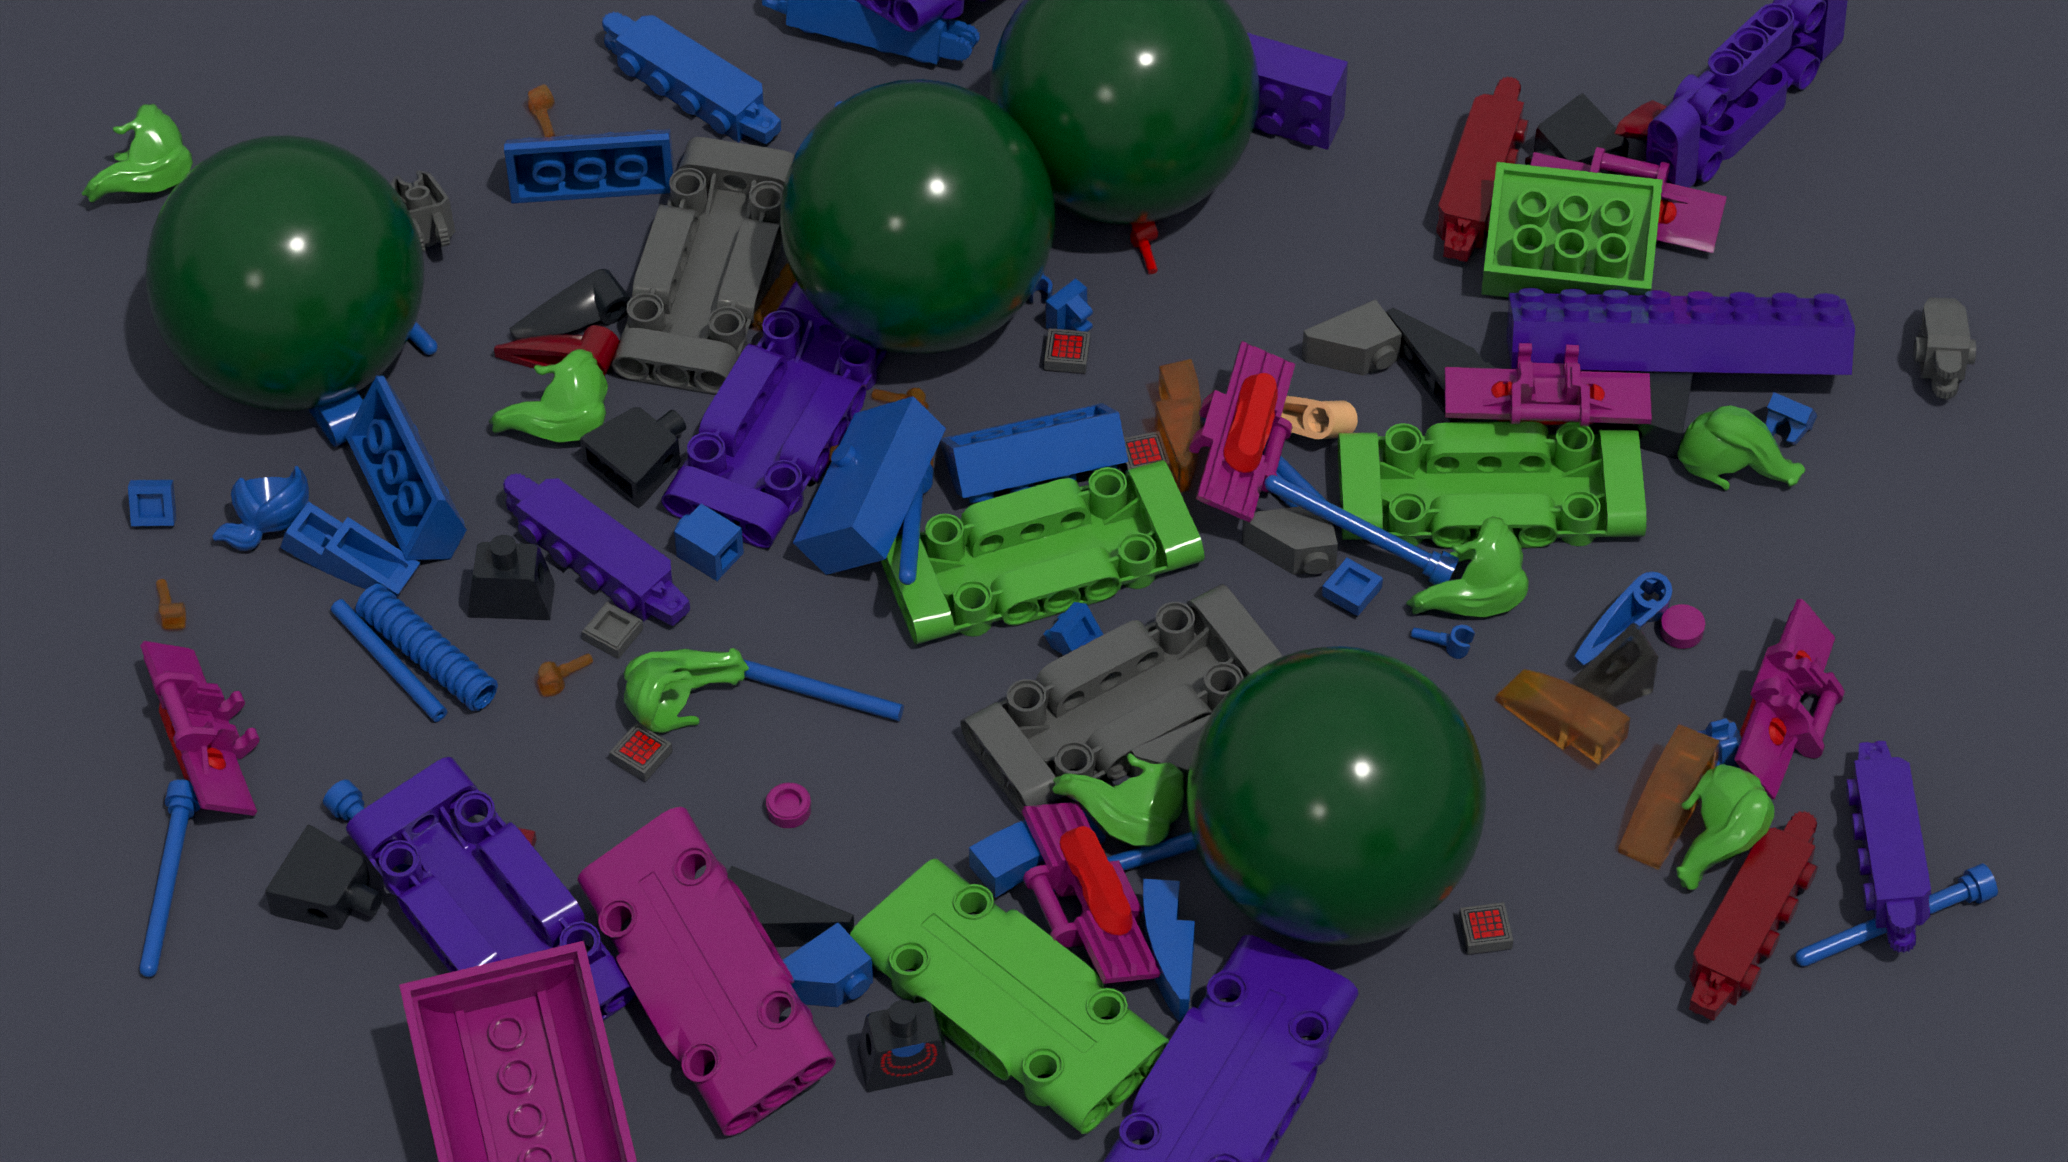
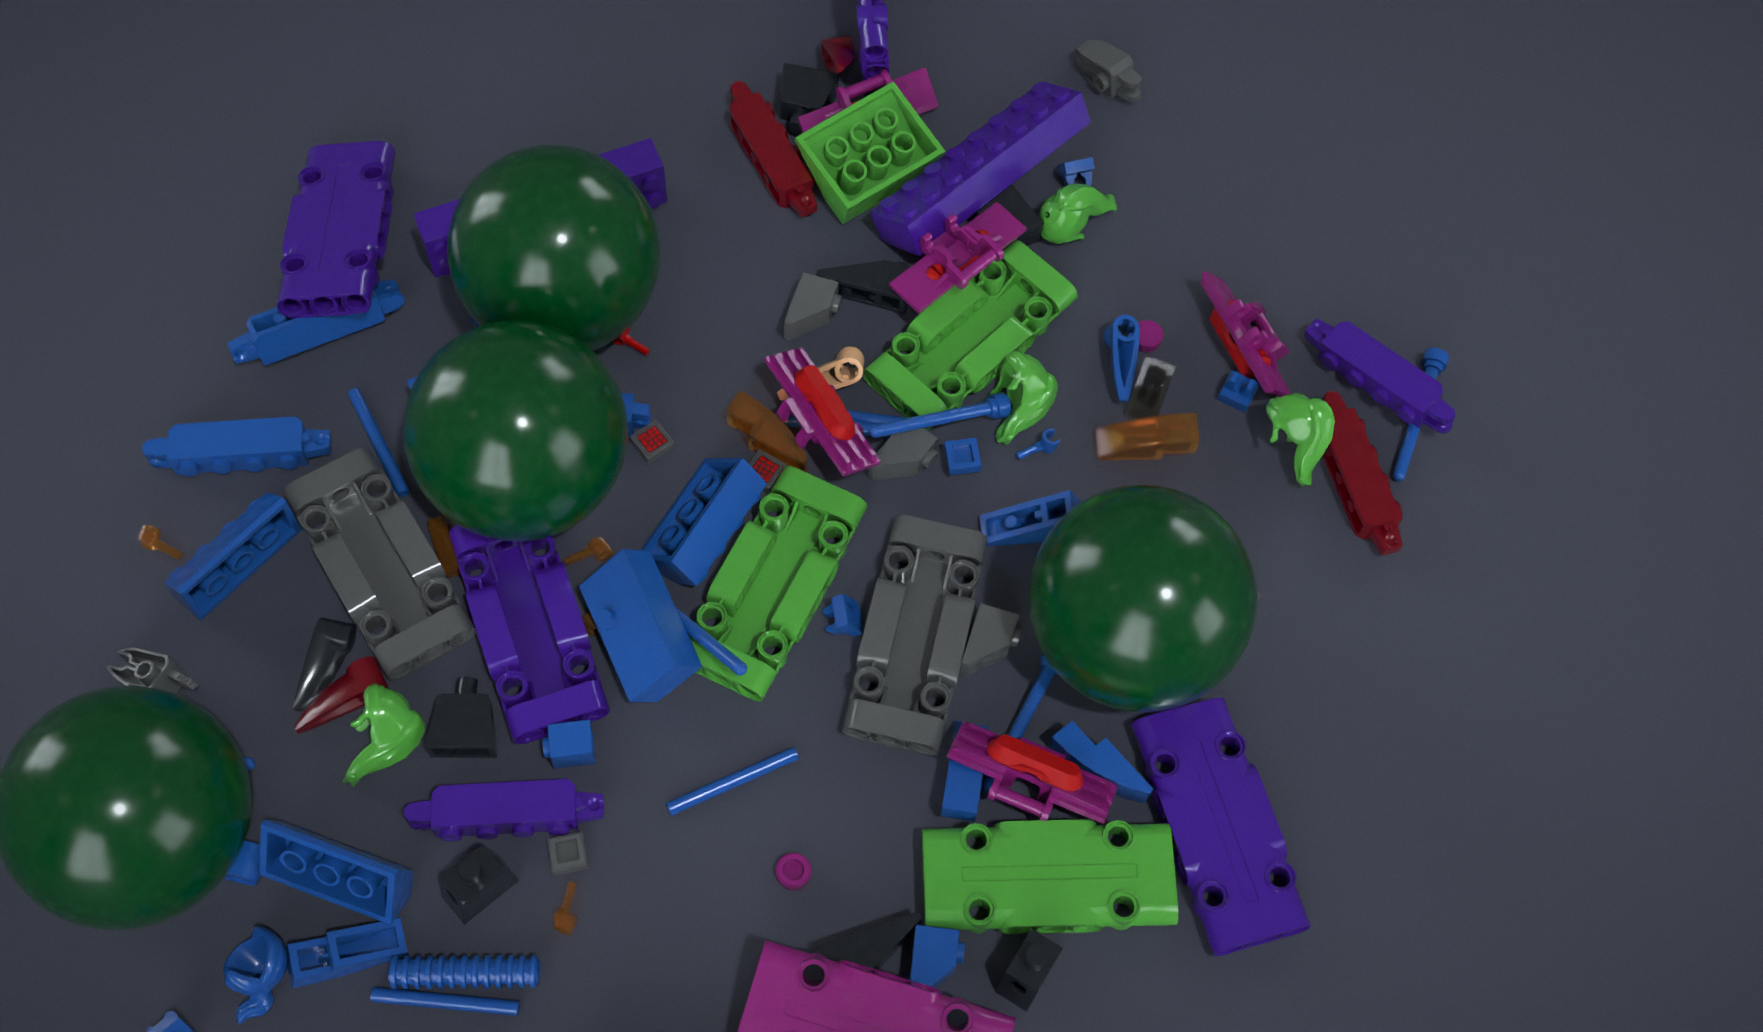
camera: 50 degrees left, 10 degrees up
(640, 752) = (670, 918): tile -> none
(663, 681) = (640, 861): bright green piece -> none
(1135, 810) = (1002, 699): bright green piece -> none
(1659, 811) = (1250, 441): clear orange slope -> none

